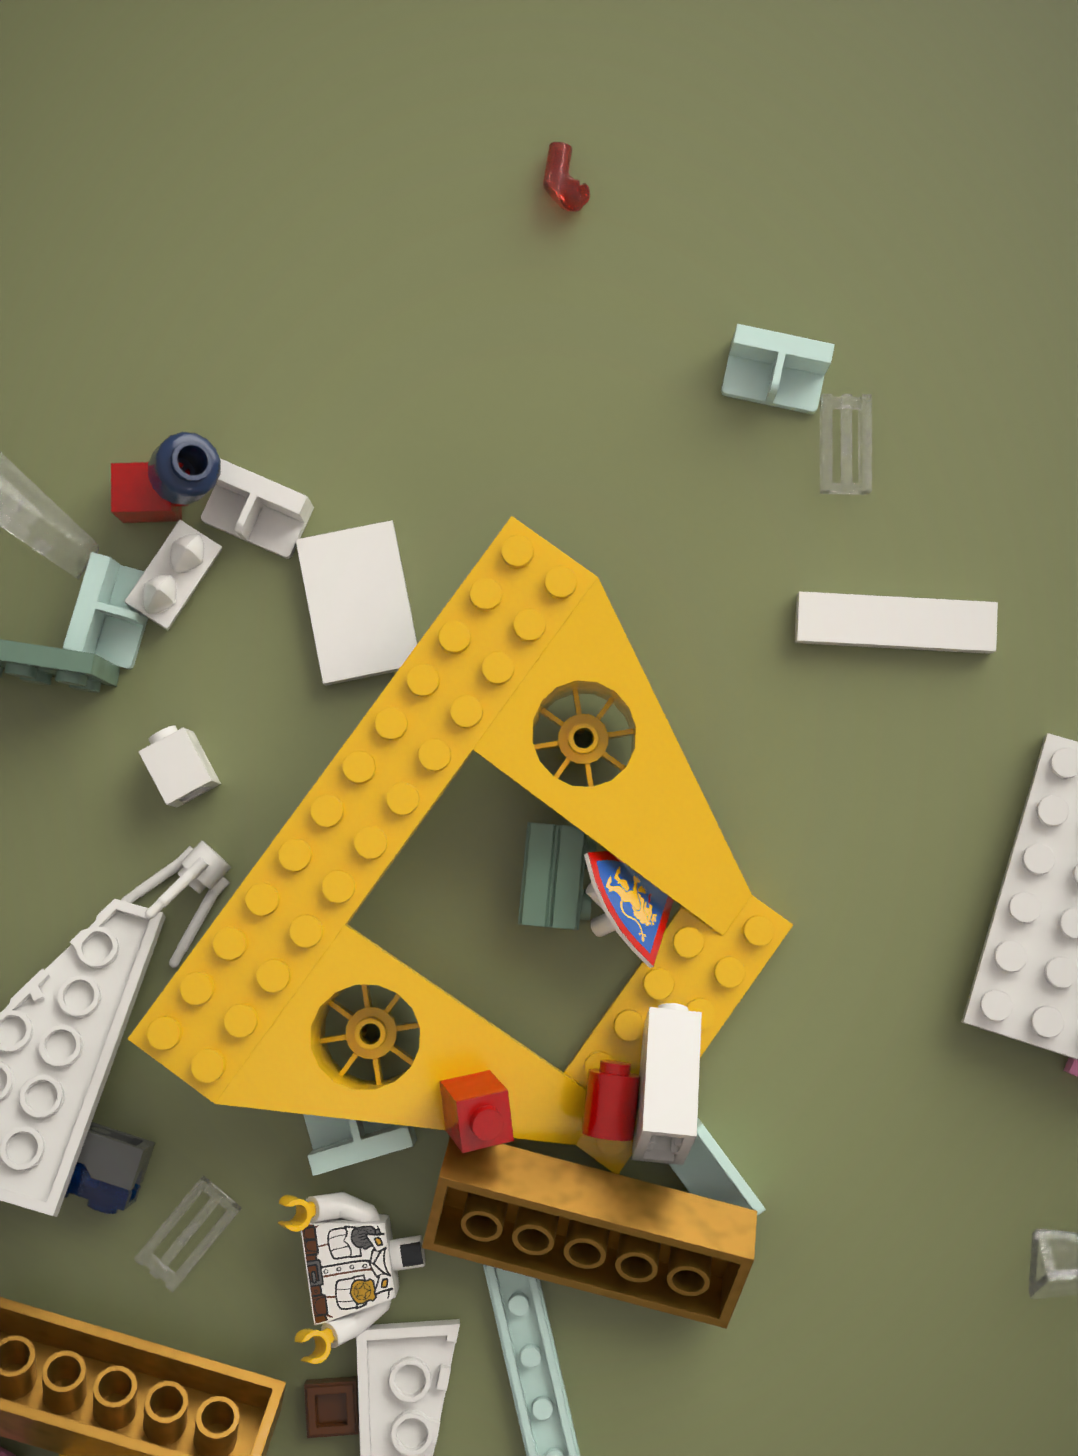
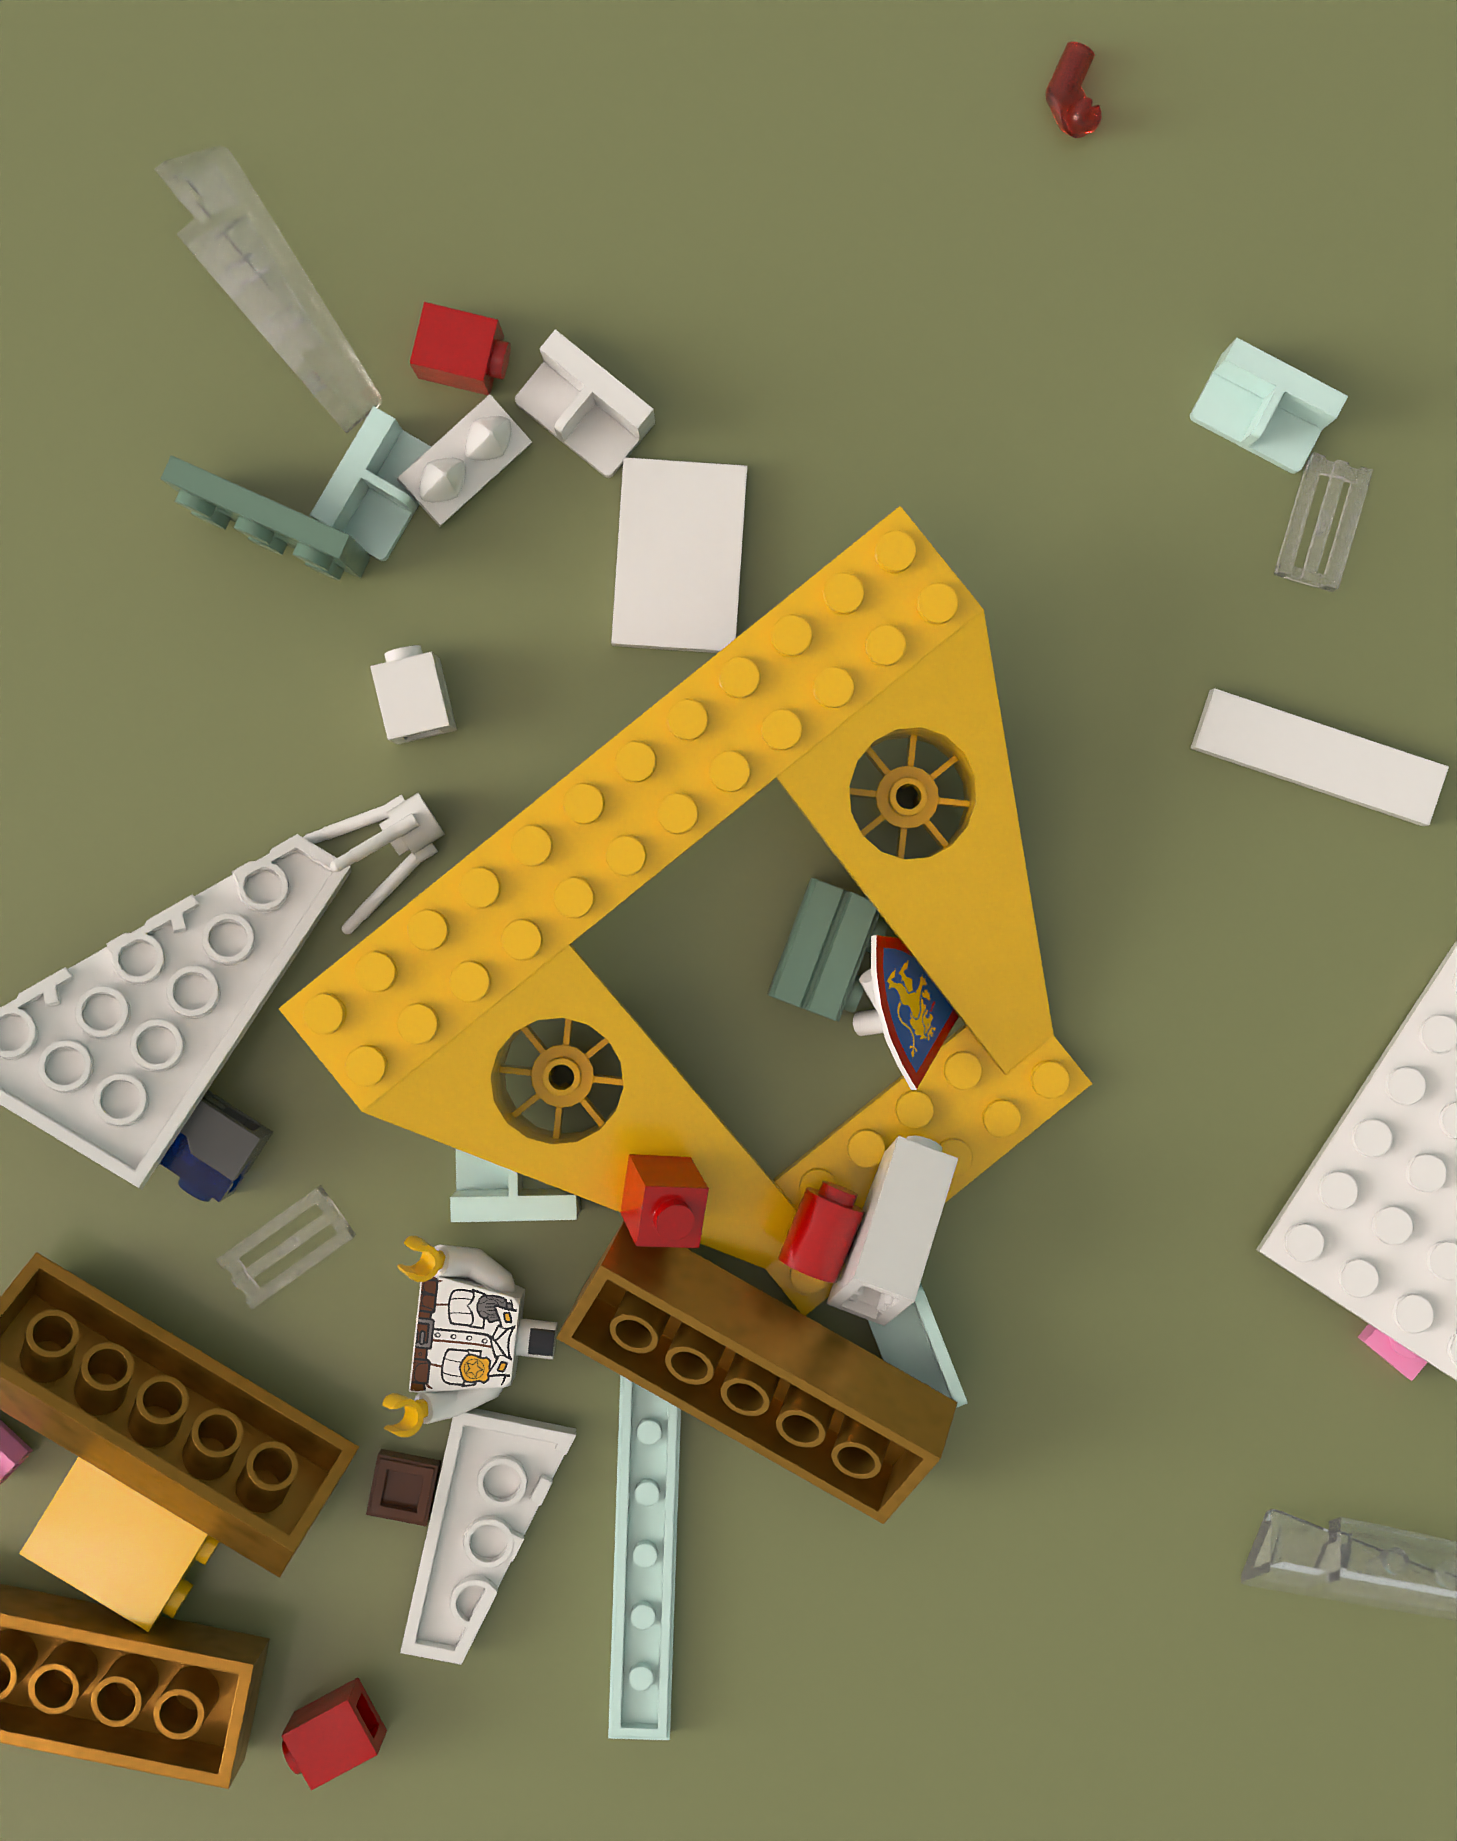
camera: 15 degrees right, 5 degrees up
(184, 468) = (514, 334): dark blue head -> none

